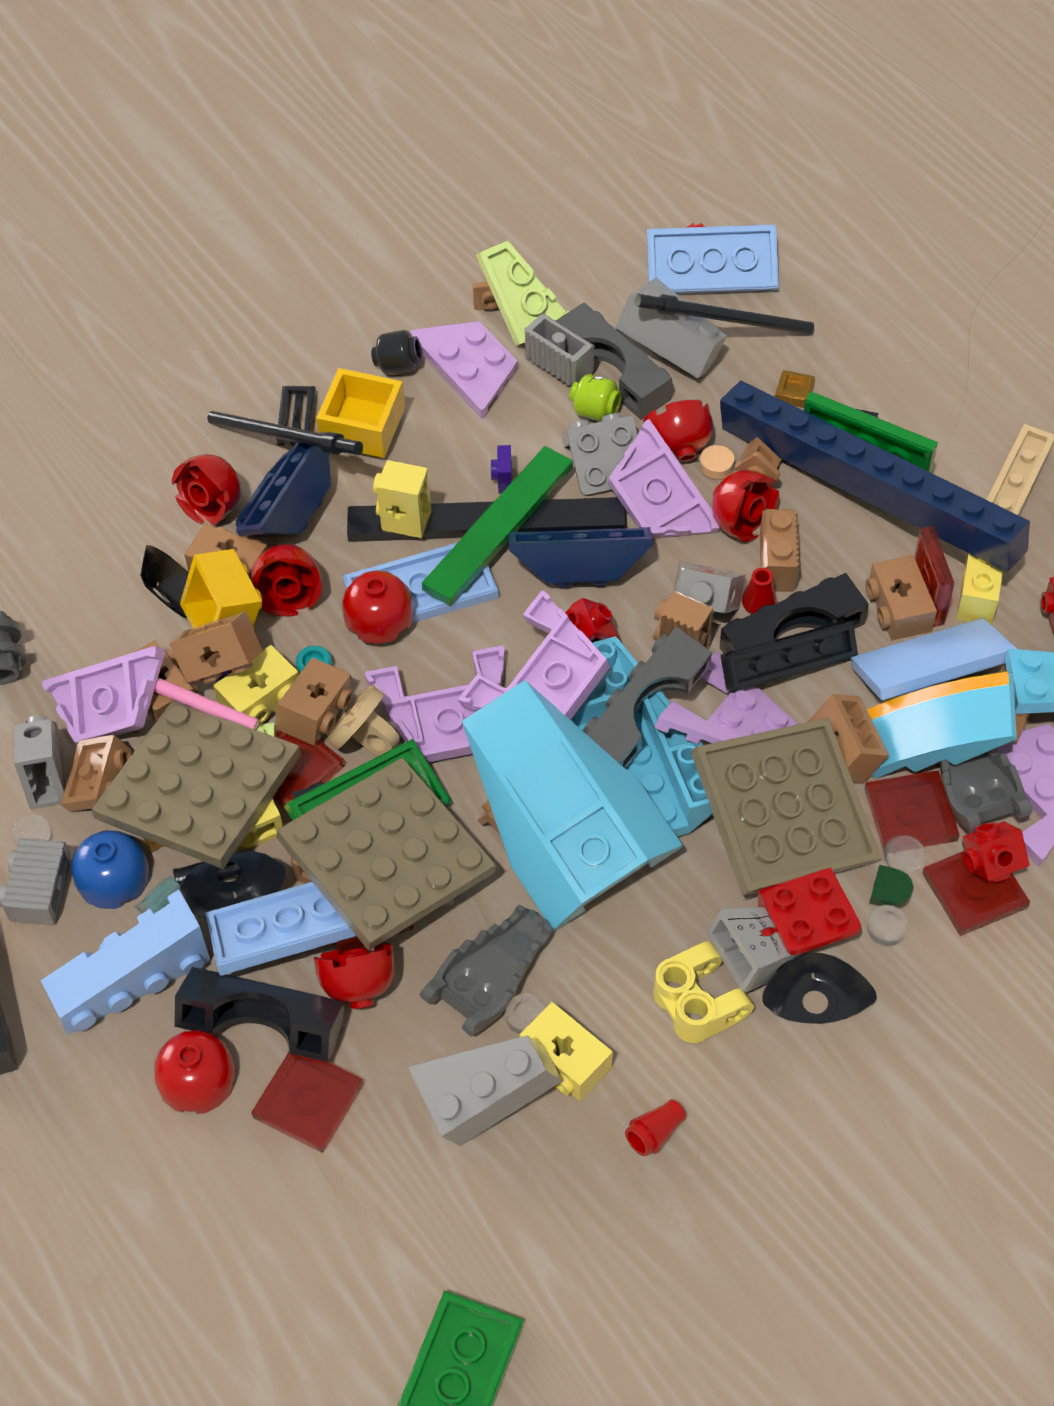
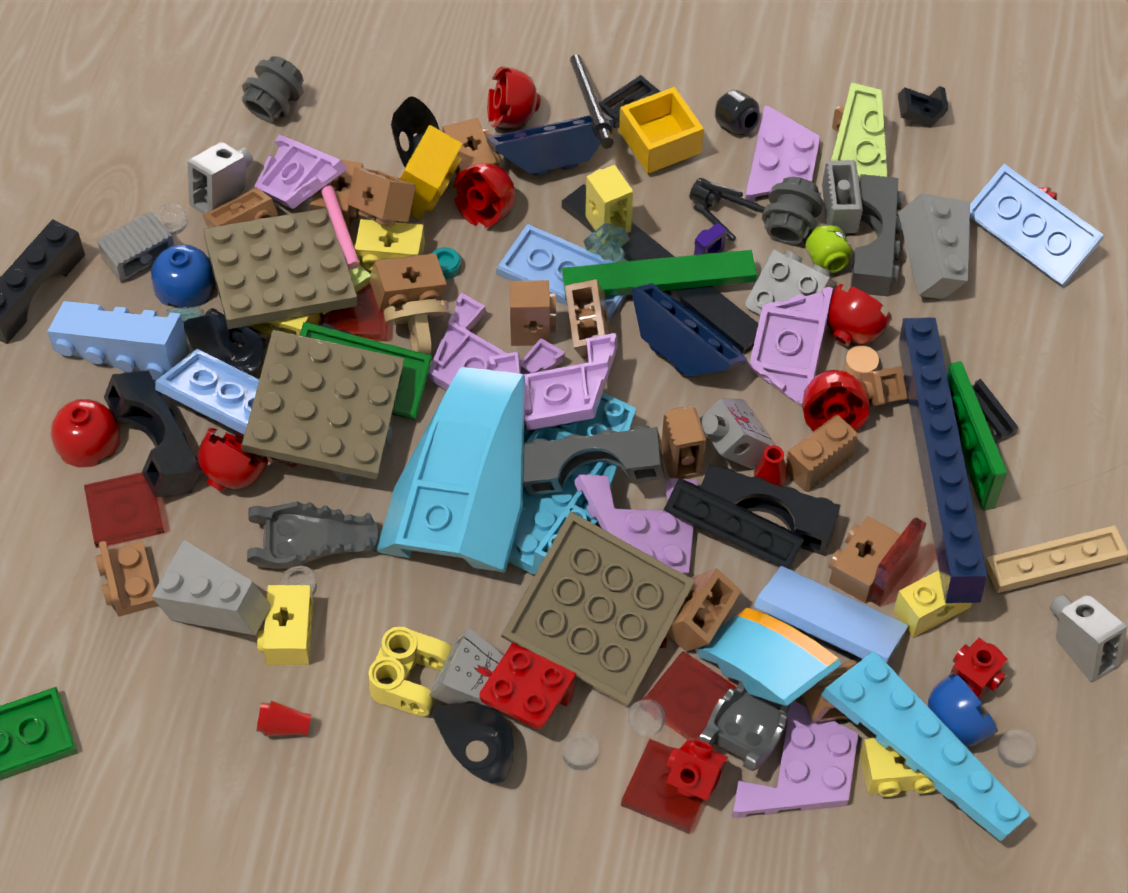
camera: 45 degrees right, 0 degrees up
(377, 607) = (516, 256): red cylinder -> none
(385, 1147) = (128, 577): none -> medium nougat bracket
(432, 534) = (607, 242): none -> clear light blue tile
(446, 636) = (531, 312): none -> medium nougat brick
(453, 432) = (709, 195): none -> black plant
(494, 600) = (586, 313): none -> medium nougat brick
(530, 236) = (922, 107): none -> black bracket
(537, 392) = (792, 210): none -> dark grey piece
(592, 619) = (631, 385): red brick -> none
(670, 305) = (935, 221): black bar -> none
(794, 387) = (982, 361): pearl gold tile -> none
(891, 888) = (612, 731): dark green tile -> none

